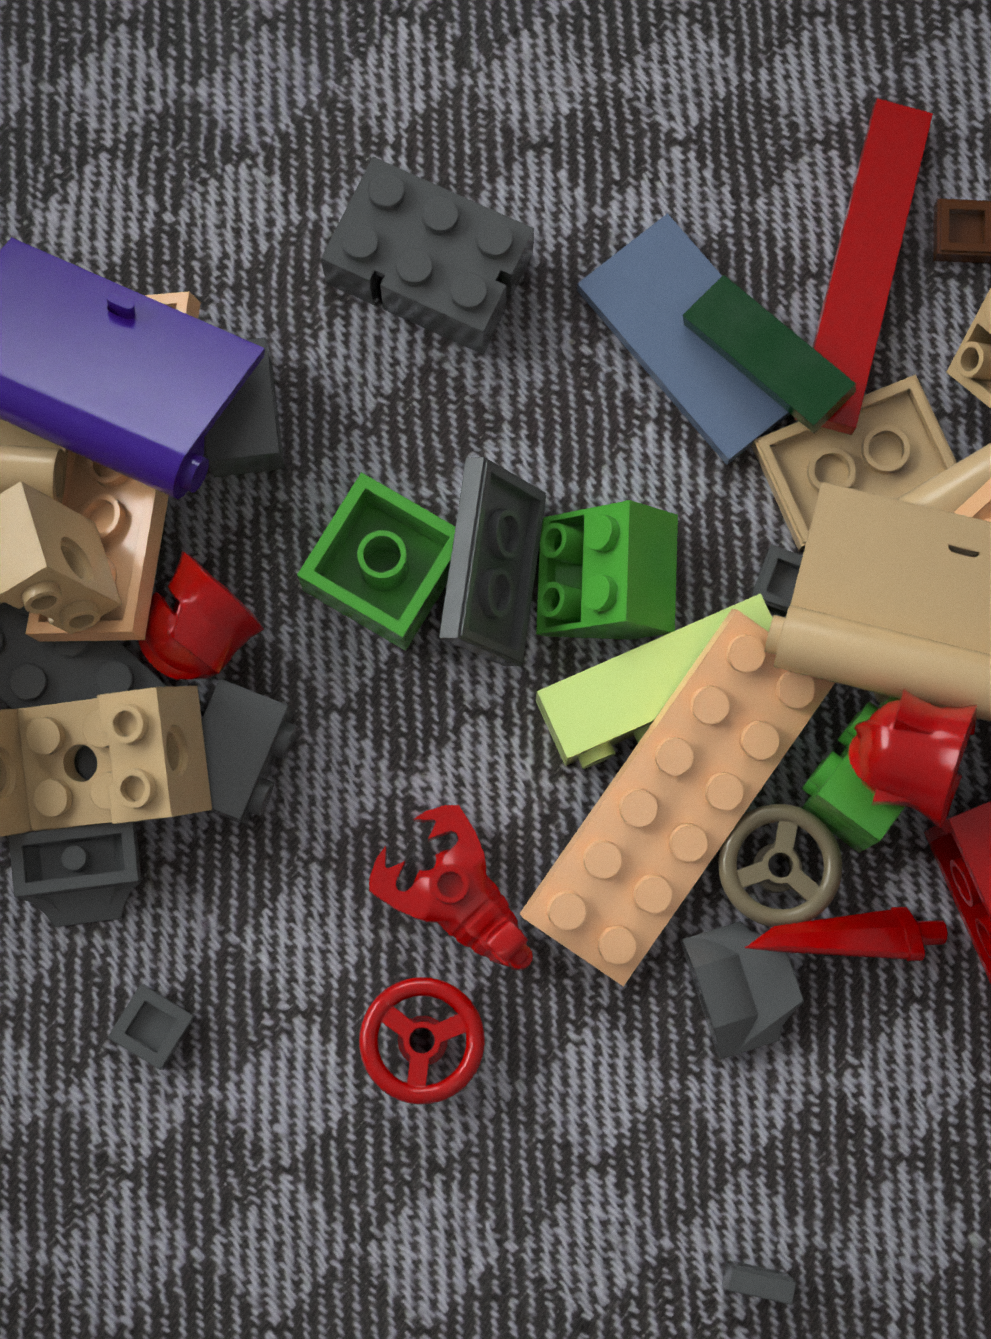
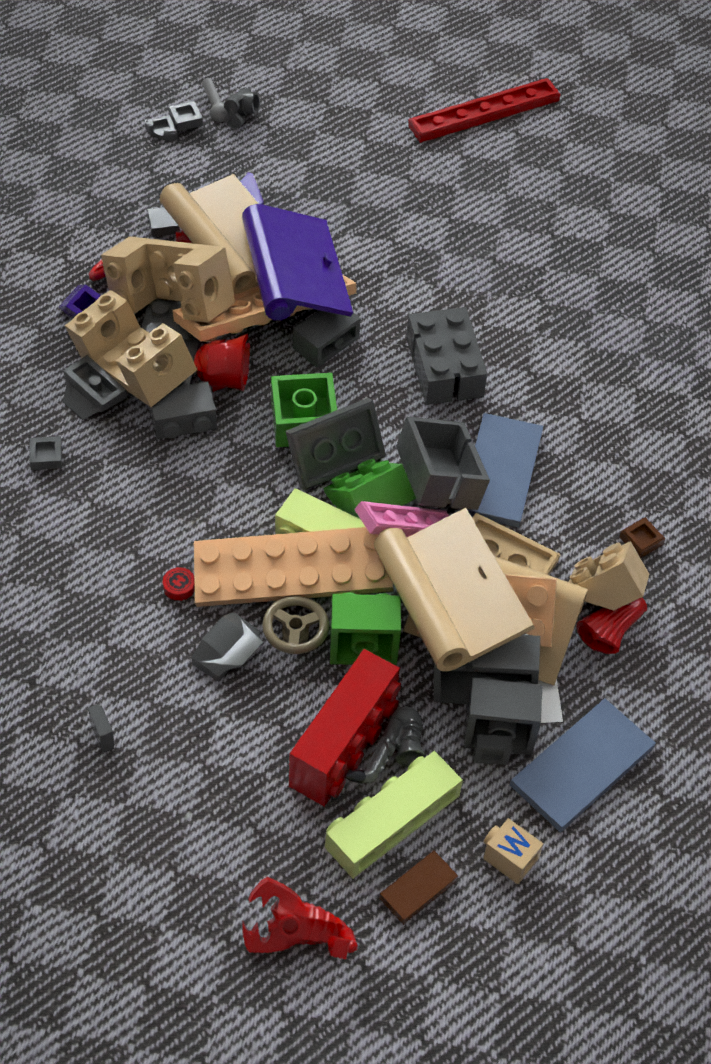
camera: 50 degrees right, 25 degrees down
(383, 1011) = (113, 547): red piece -> none
(456, 893) = (187, 516): red animal -> none
(565, 984) = (179, 583): none -> red tile
(668, 455) = (442, 463): none -> dark grey piece
(739, 573) = (410, 519): none -> bright pink tile
(769, 353) = (514, 487): dark green tile -> none
(870, 248) = (587, 506): red tile -> none
(871, 934) = (294, 680): red bar -> none
(913, 754) = (375, 597): red helmet -> none

